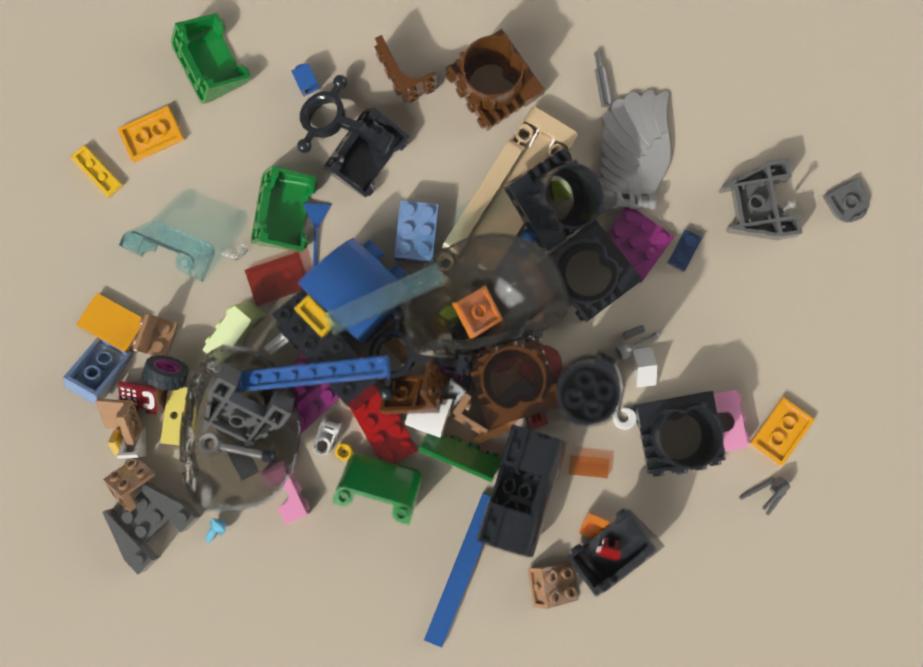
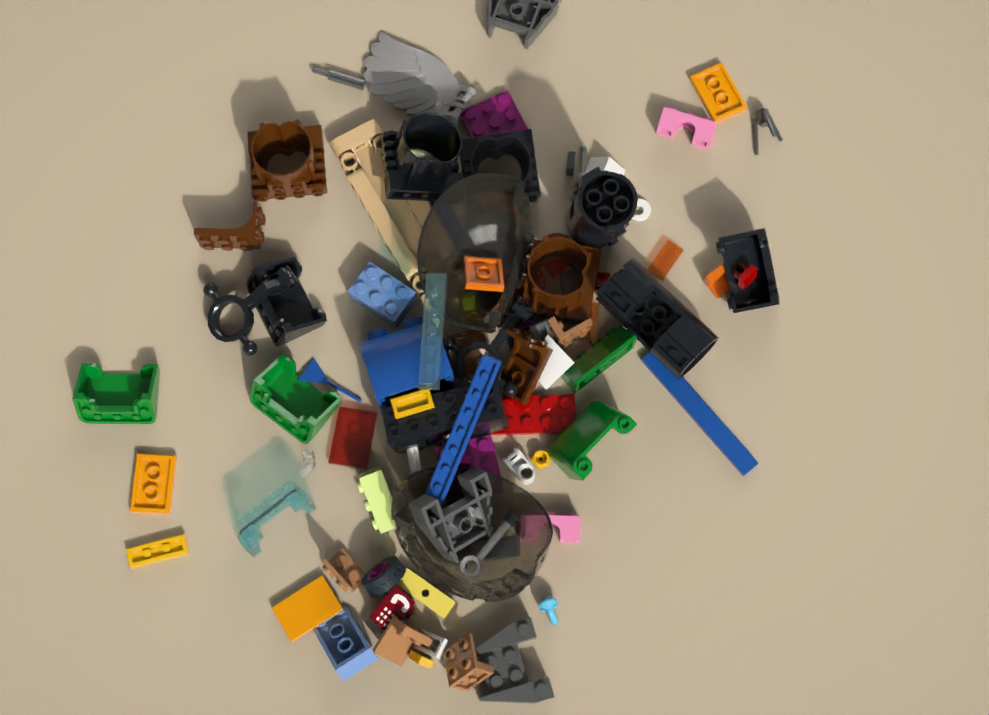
camera: 65 degrees left, 10 degrees down
(305, 79) = (188, 319): blue brick -> none
(552, 585) = (751, 342): medium nougat bracket -> none
(684, 250) = (523, 89): dark blue plate -> none
(699, 407) = (658, 187): black hose -> none

